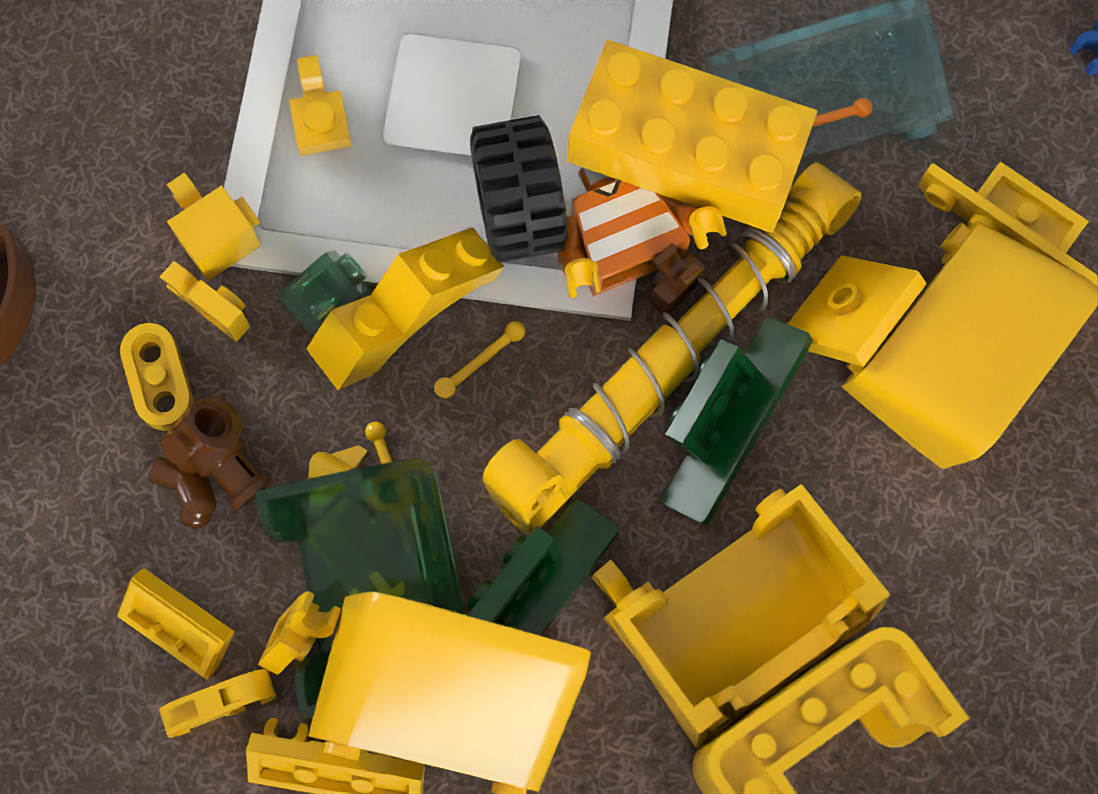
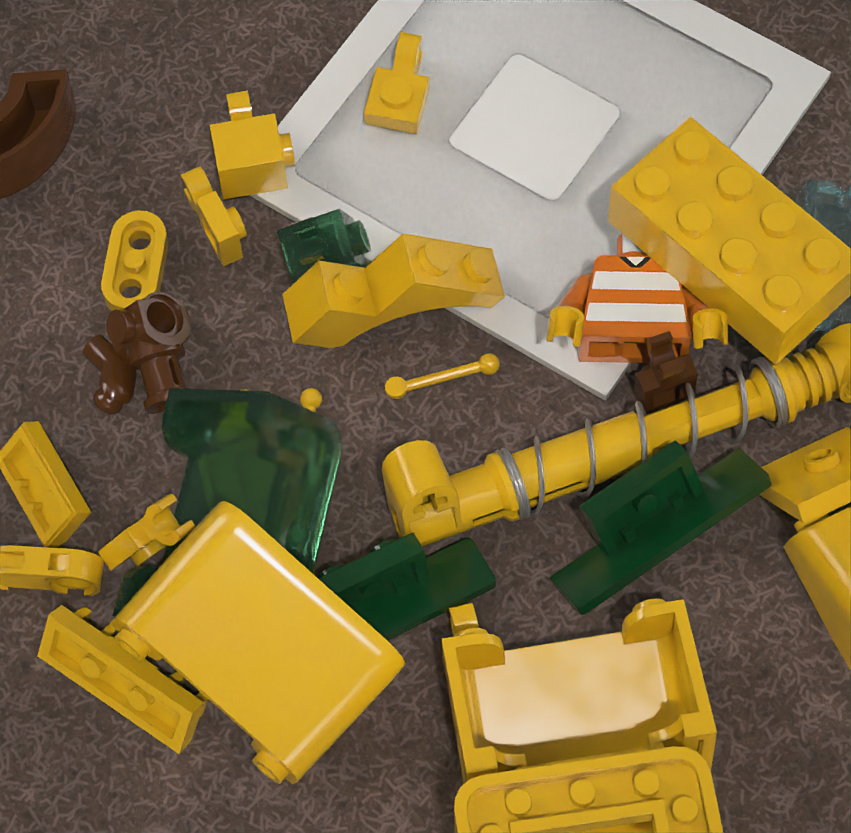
camera: 30 degrees right, 10 degrees down
(519, 188) = (545, 223): black tyre -> none

